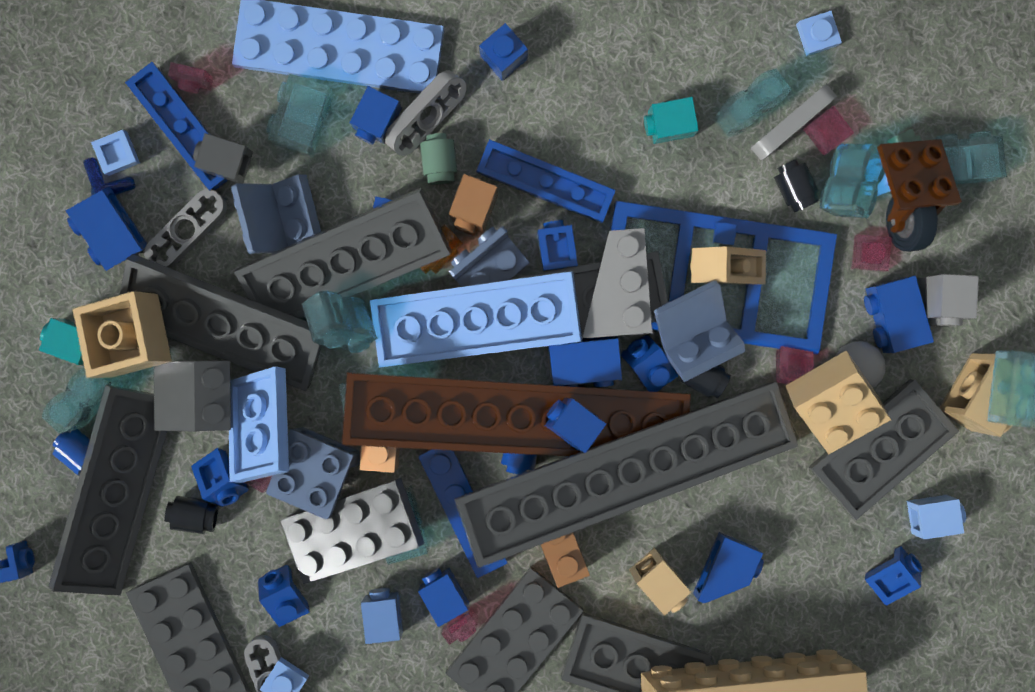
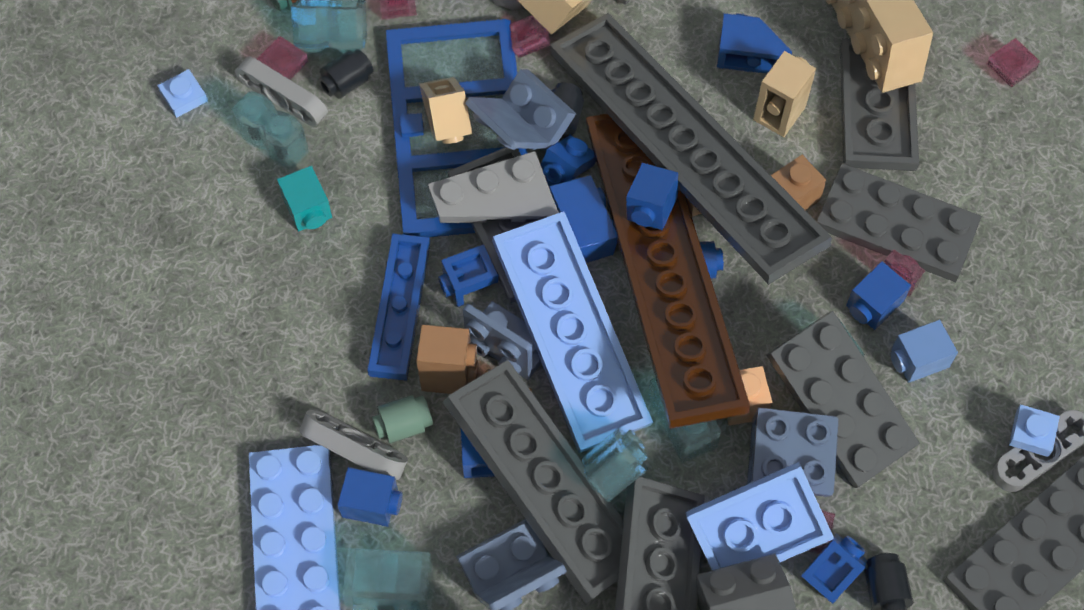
camera: 100 degrees left, 25 degrees down
(281, 596) = (940, 464): blue bracket -> none
(448, 483) = (781, 303): blue plate -> none
(503, 52) = (266, 378): blue brick -> none

